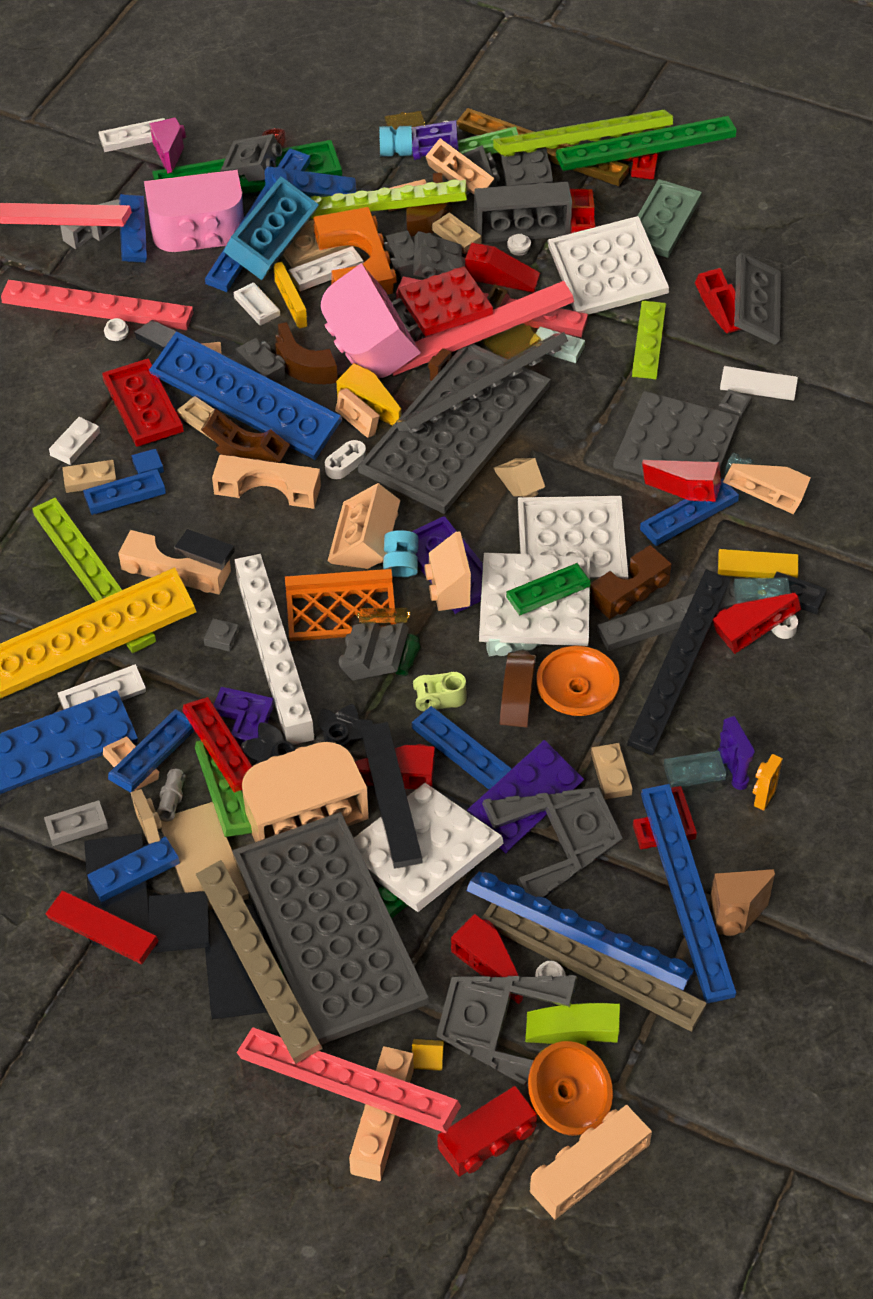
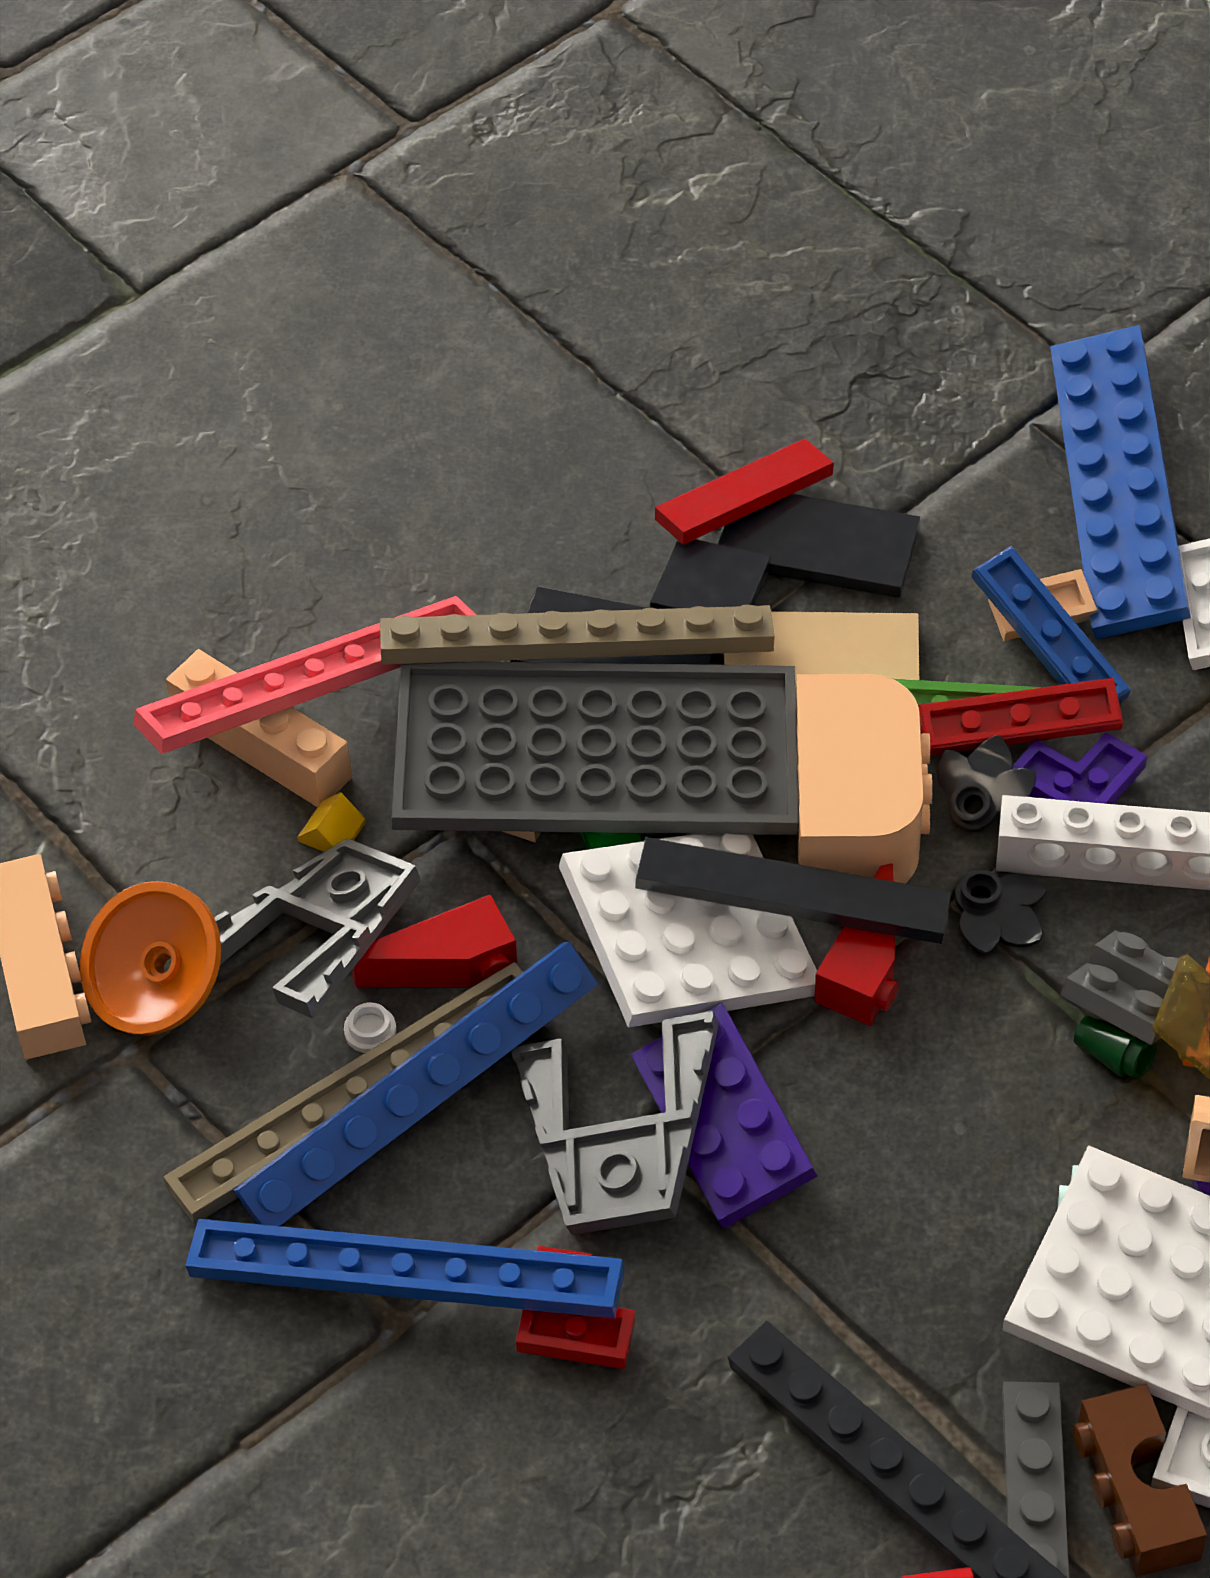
camera: 115 degrees right, 0 degrees up
(76, 823) = (958, 515): light grey plate -> none
(133, 869) = (832, 555): blue plate -> none
(146, 815) = (917, 582): tan plate -> none
(171, 794) = (953, 636): light grey pin -> none
(440, 691) = (1006, 1063): yellowish green piece -> none
(460, 747) = (869, 1059): blue plate -> none
(487, 1131) = (154, 829): red brick -> none
(517, 689) = (965, 1176): reddish brown arch -> none
(548, 589) = (1144, 1287): green tile -> none
(574, 1023) = (250, 1030): lime slope -> none
(577, 670) = (928, 1249): orange dish -> none
(611, 771) = (721, 1278): tan plate -> none
(694, 769) = (655, 1406): clear light blue plate -> none
(736, 752) = (656, 1461): dark purple plate -> none
(739, 899) = (338, 1324): medium nougat slope -> none
(767, 781) = (550, 1486): light orange plate -> none

